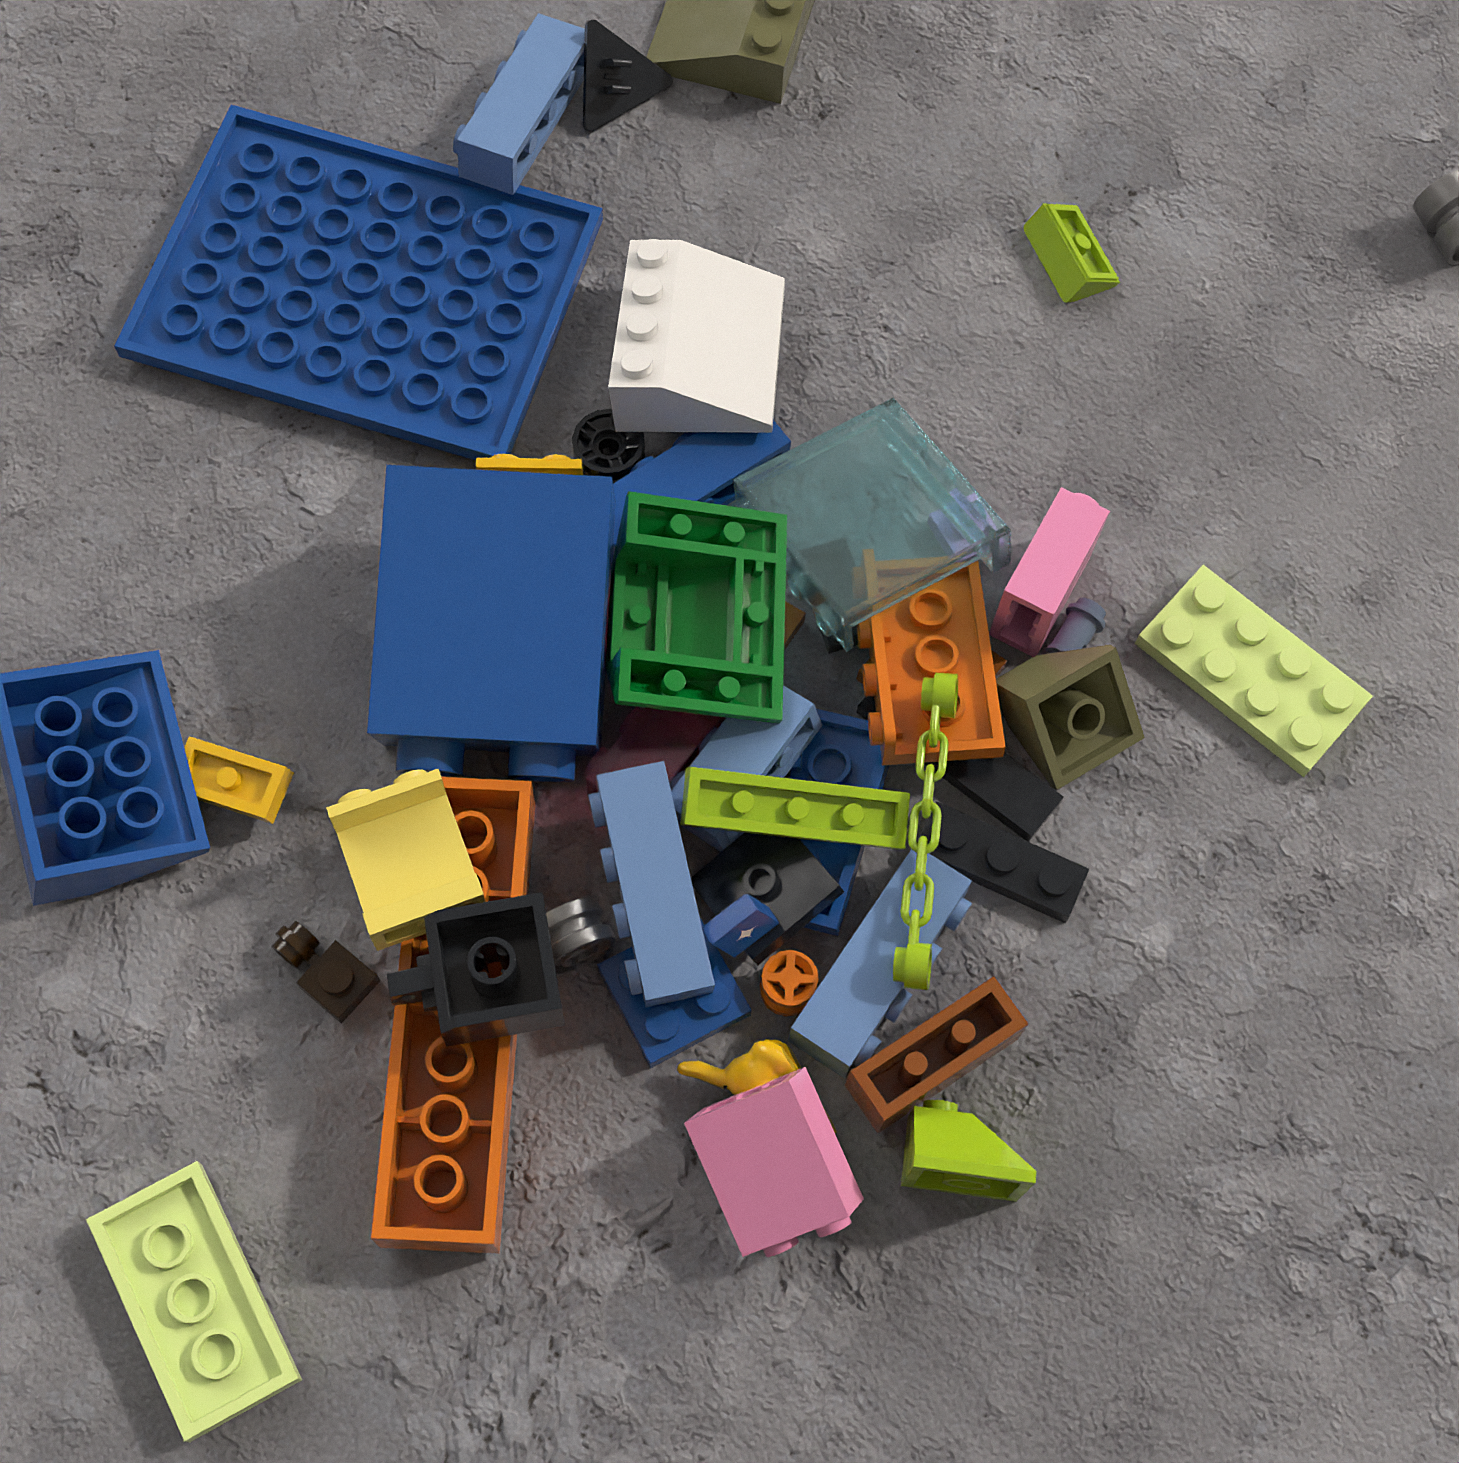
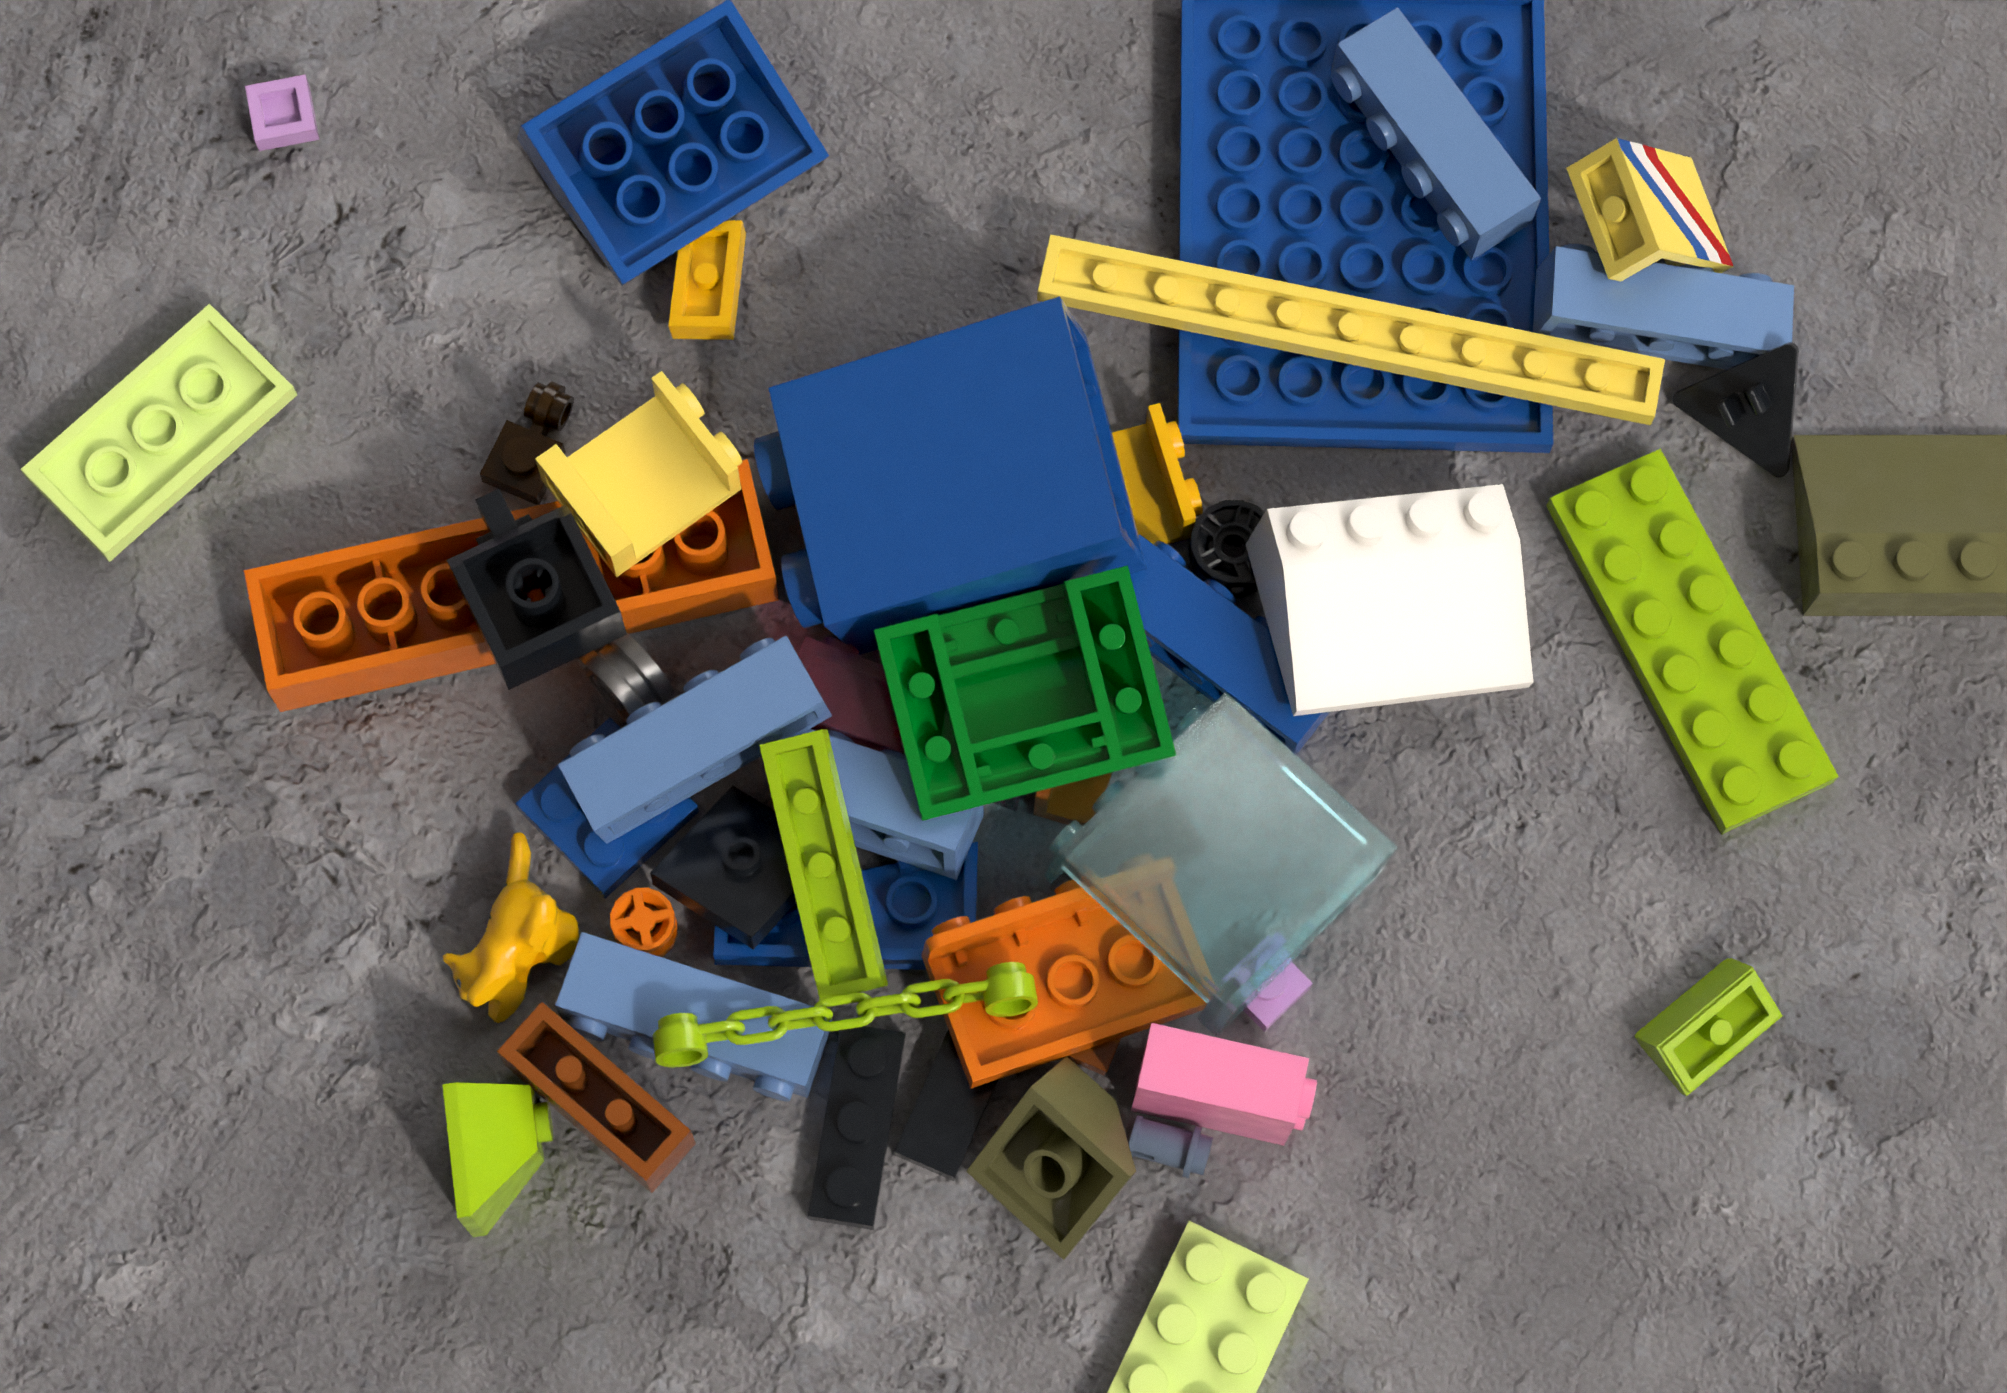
camera: 75 degrees right, 5 degrees up
(324, 201) = (1433, 134): none -> medium blue brick
(448, 80) = (1646, 209): none -> light yellow panel
(458, 317) = (1352, 330): none -> light yellow plate
(740, 925) = (675, 843): blue tile -> none
(775, 1164) = (425, 952): bright pink brick -> none
(778, 174) = (1691, 641): none -> lime plate

